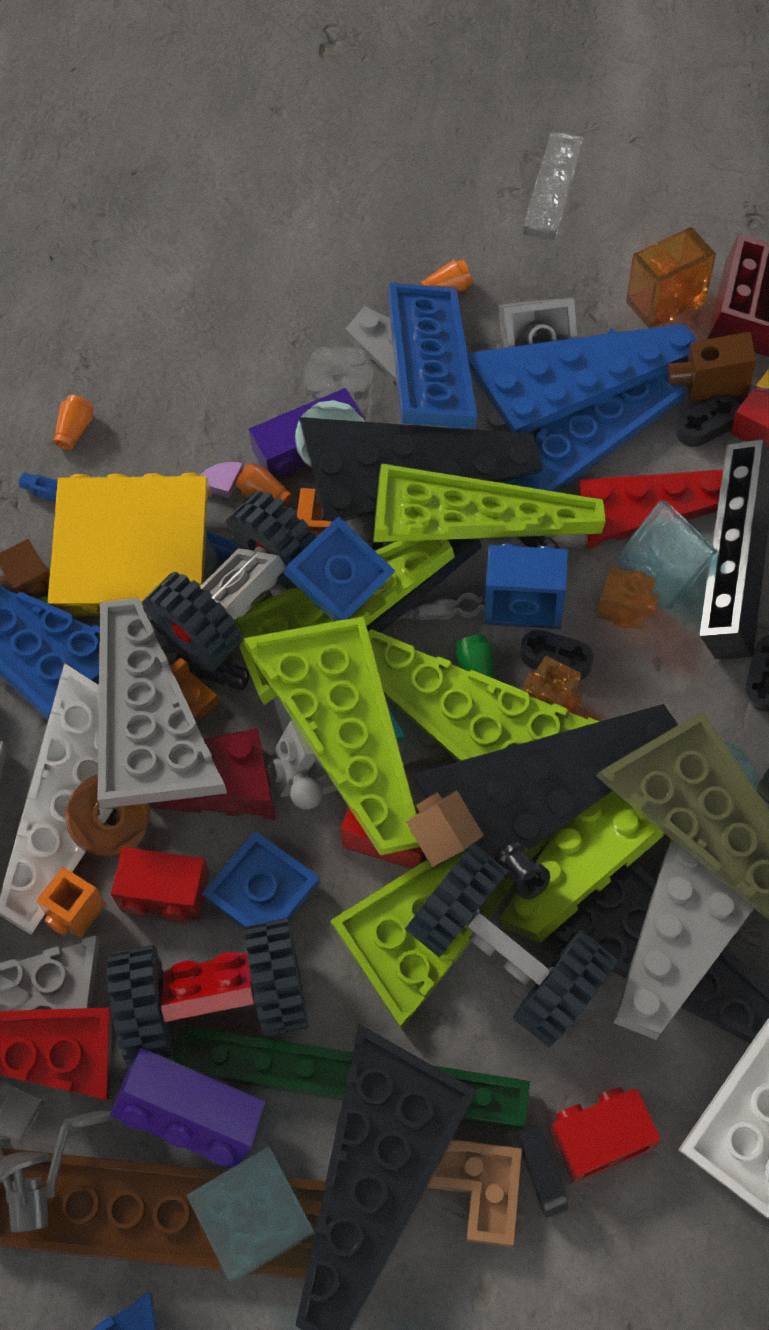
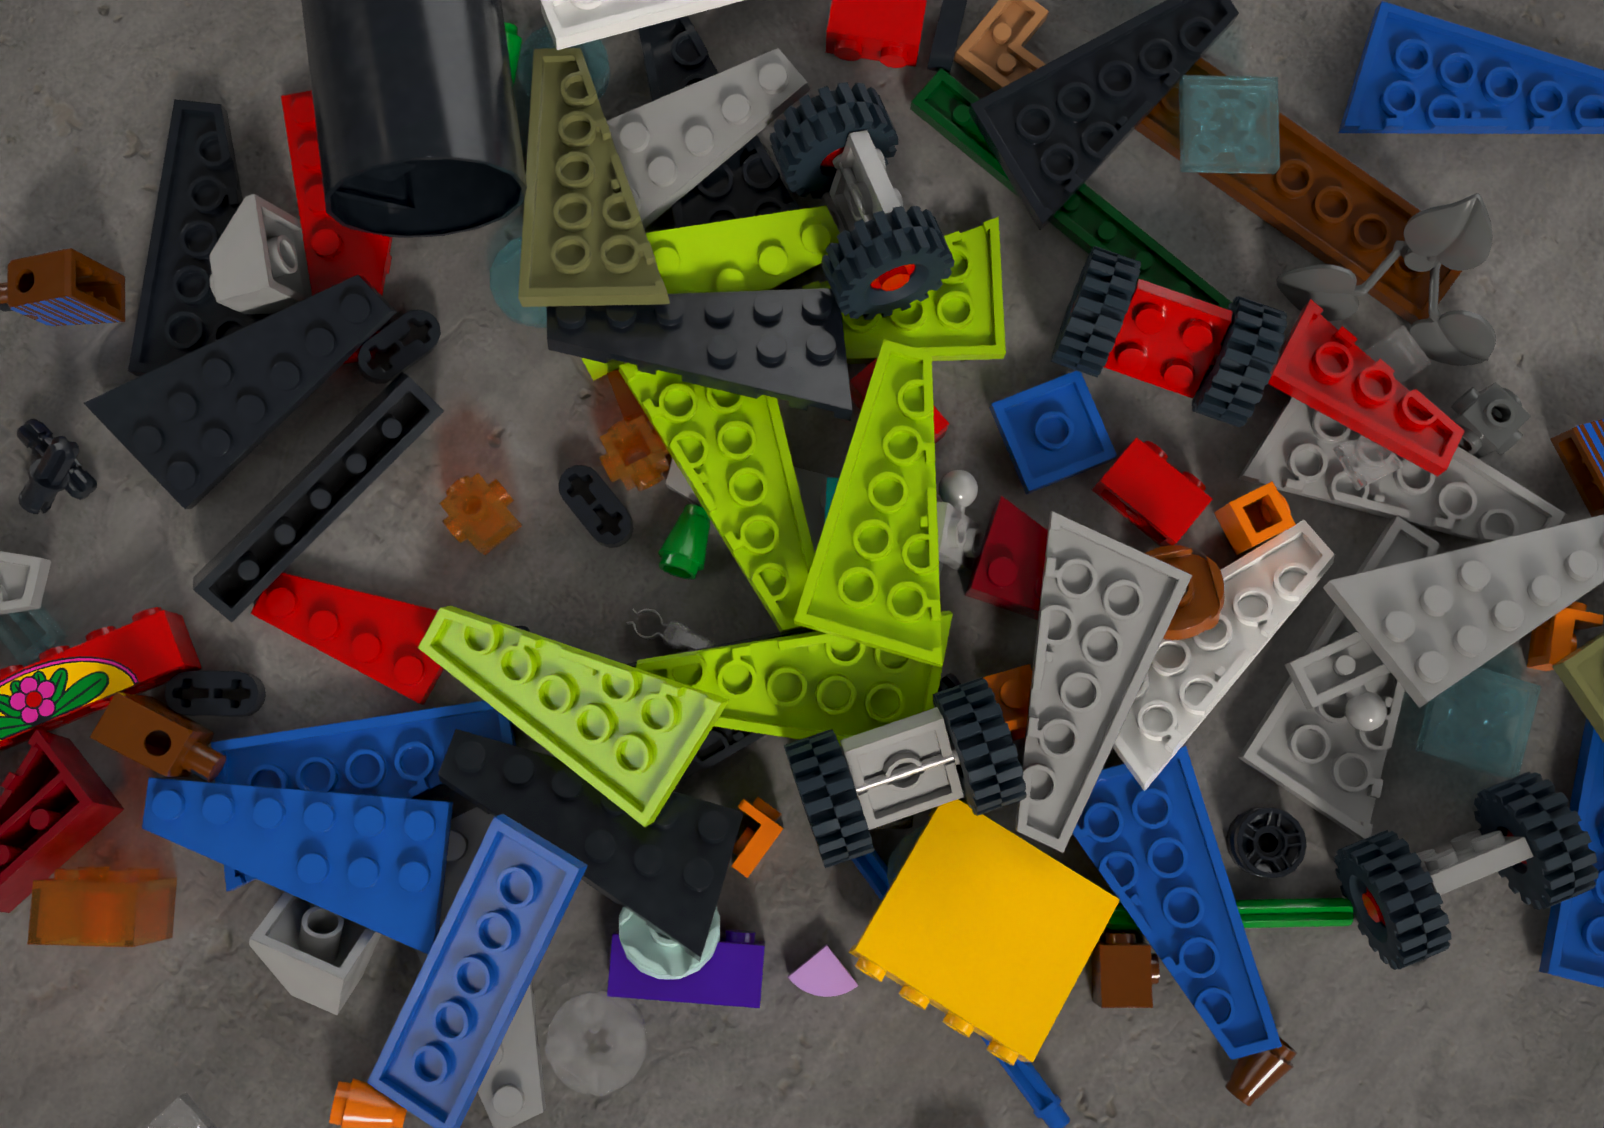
camera: 155 degrees left, 20 degrees up
(188, 1109) = (1243, 240): dark purple brick -> none
(258, 478) = (783, 925): orange cone -> none
(338, 571) = (785, 698): blue plate -> none
(443, 827) = (856, 334): medium nougat brick -> none
(523, 871) = (802, 265): black bush -> none
(525, 586) = (580, 583): blue brick -> none
(669, 551) = (401, 534): clear light blue tile -> none

